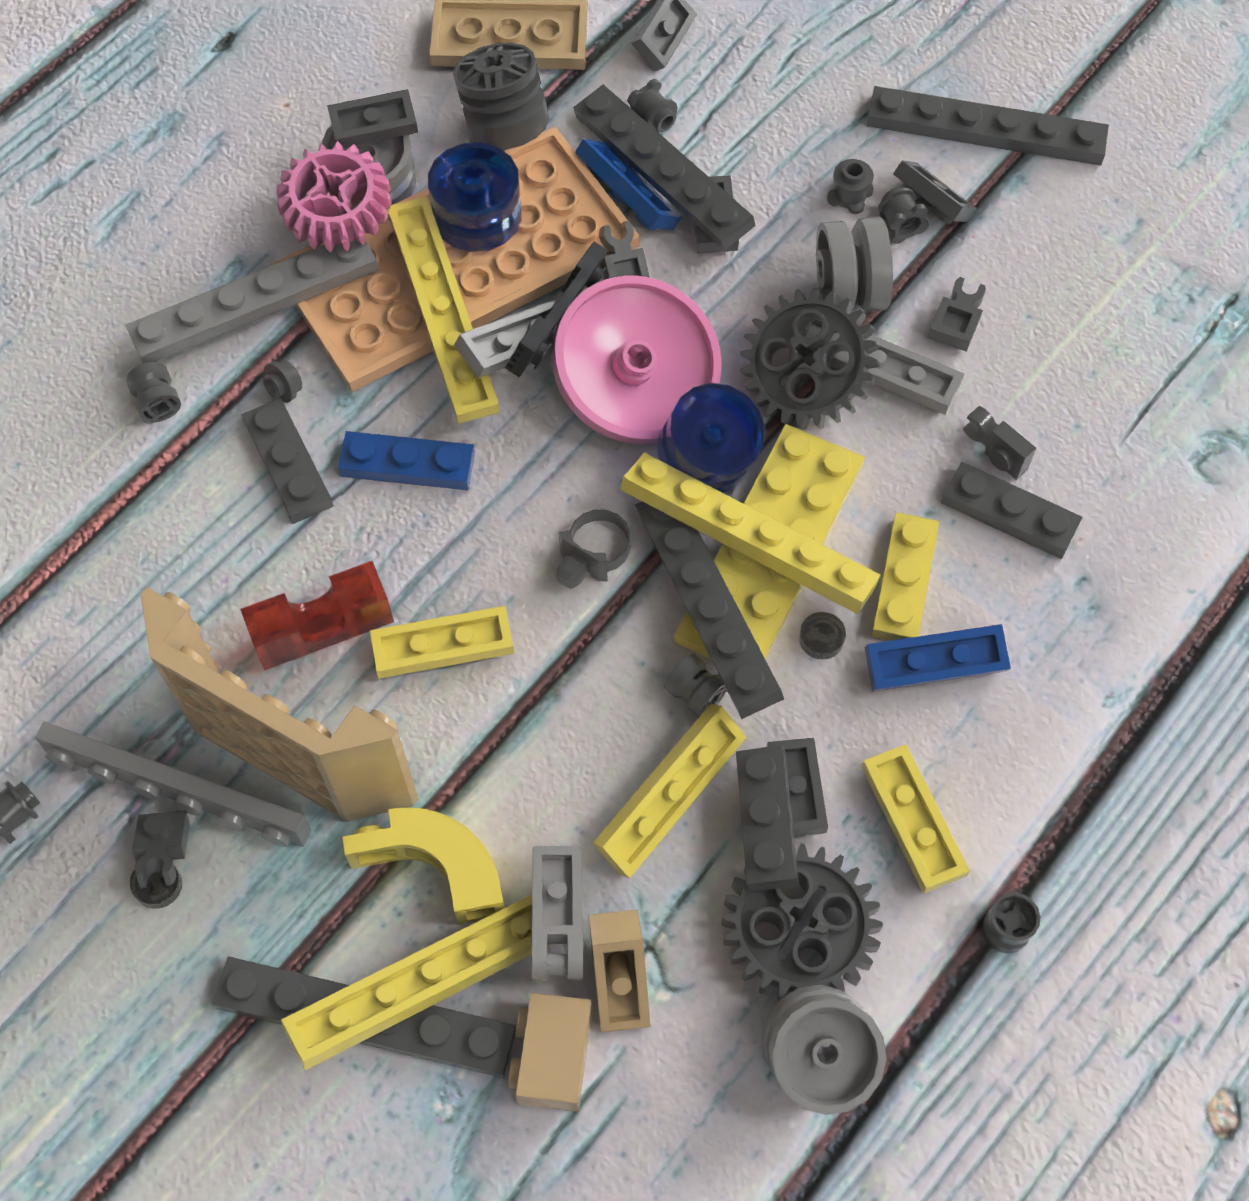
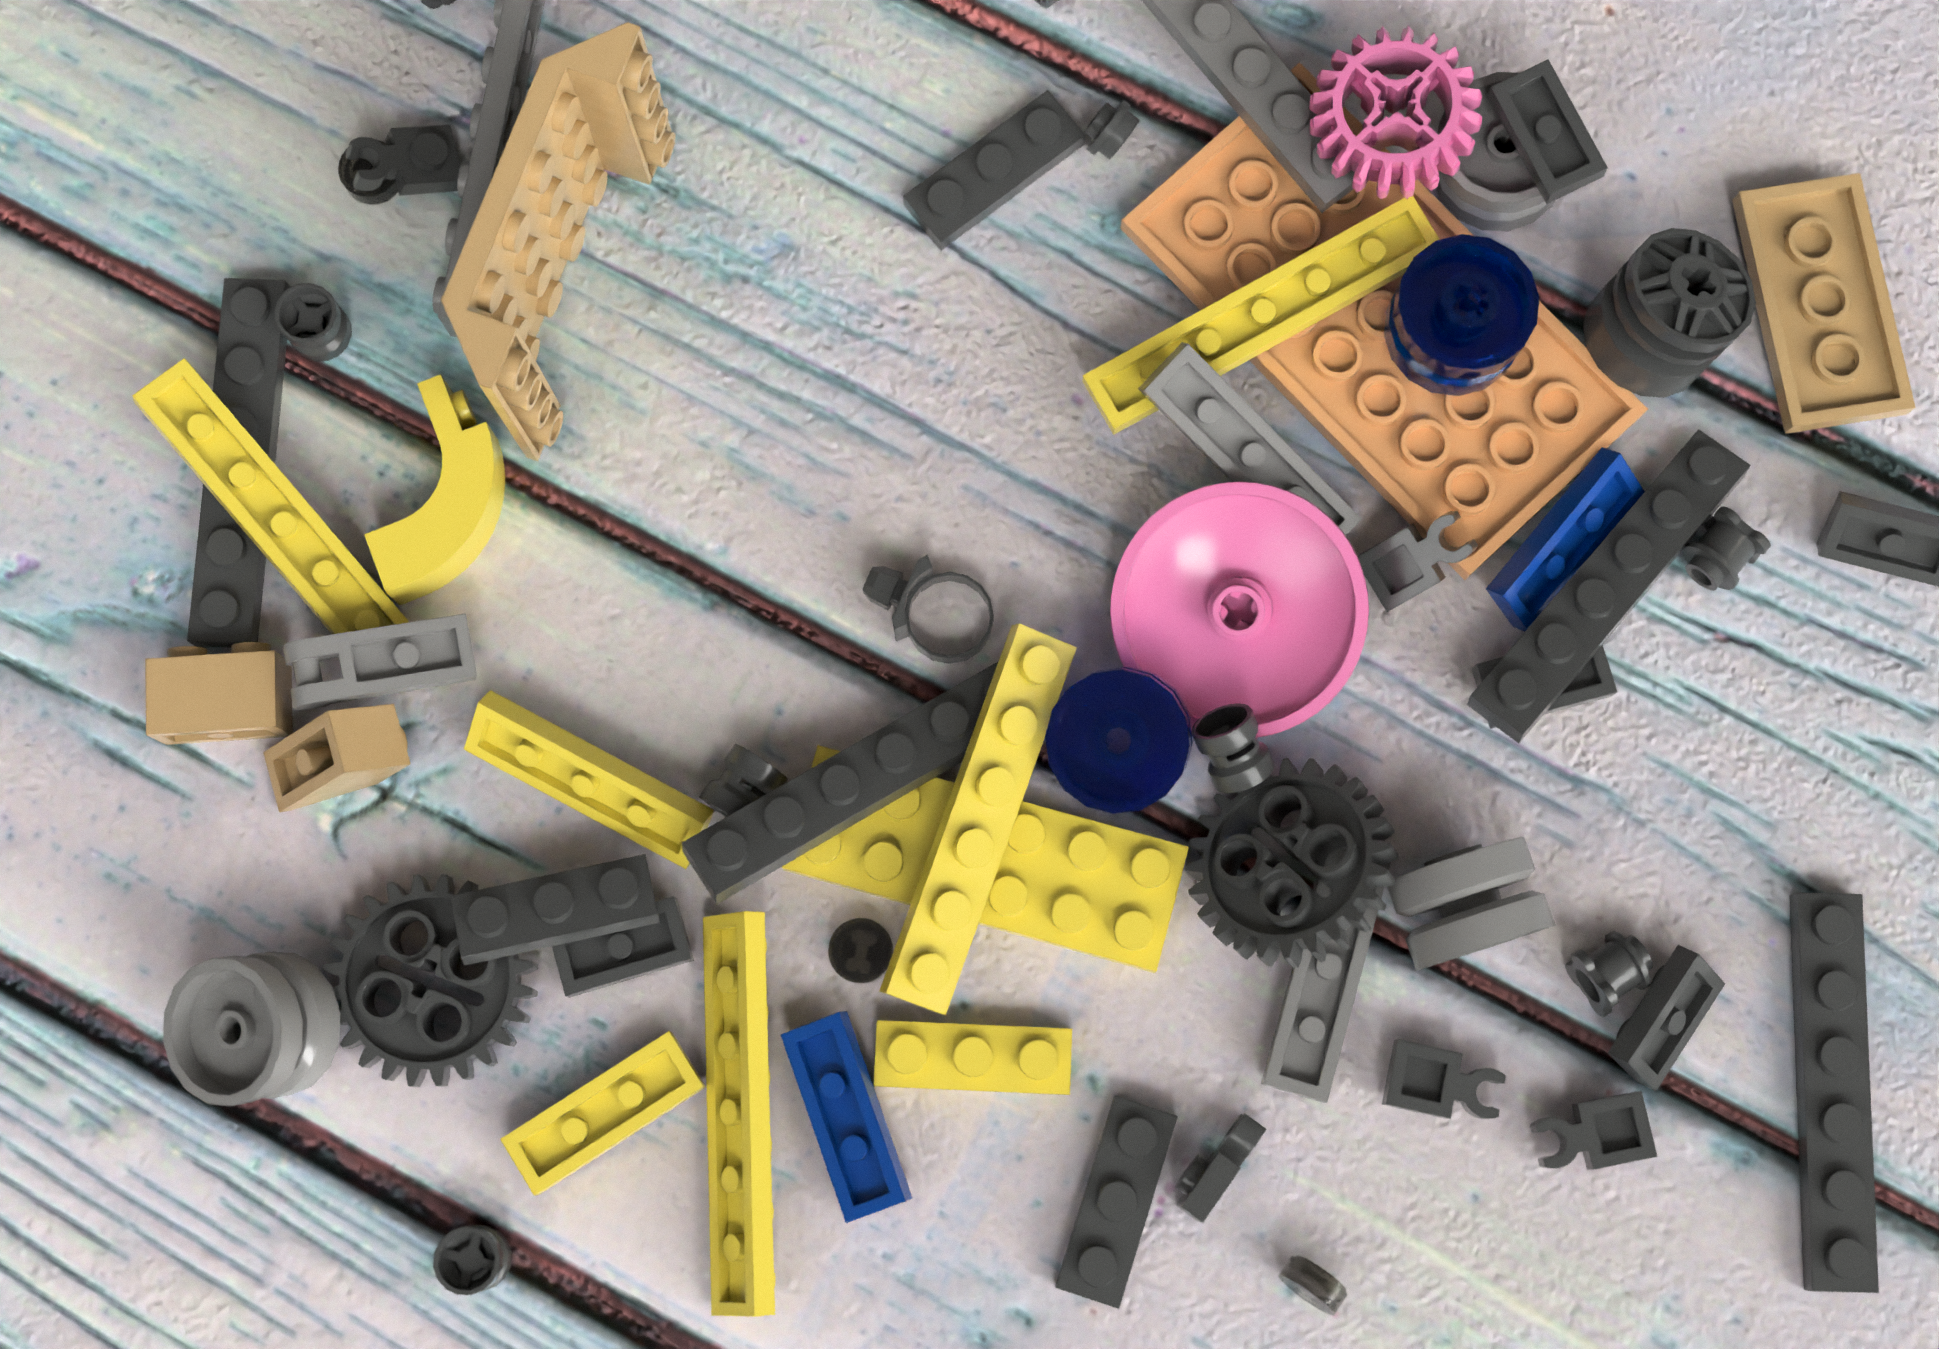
camera: 80 degrees right, 15 degrees up
(263, 928) = (303, 311): none -> dark grey wheel
(292, 630) = (743, 266): clear red arch -> none
(406, 460) = (1025, 329): blue plate -> none
(441, 642) = (751, 439): light yellow plate -> none
(533, 346) = (1362, 505): black container -> none
(736, 372) = (1232, 747): none -> dark grey wheel
(852, 186) = (1634, 890): dark grey brick -> none
(927, 726) = (738, 1115): none -> light yellow plate
(1001, 237) = (1605, 1130): none -> dark grey plate
(1078, 404) = (1313, 1284): none -> clear smoke tile

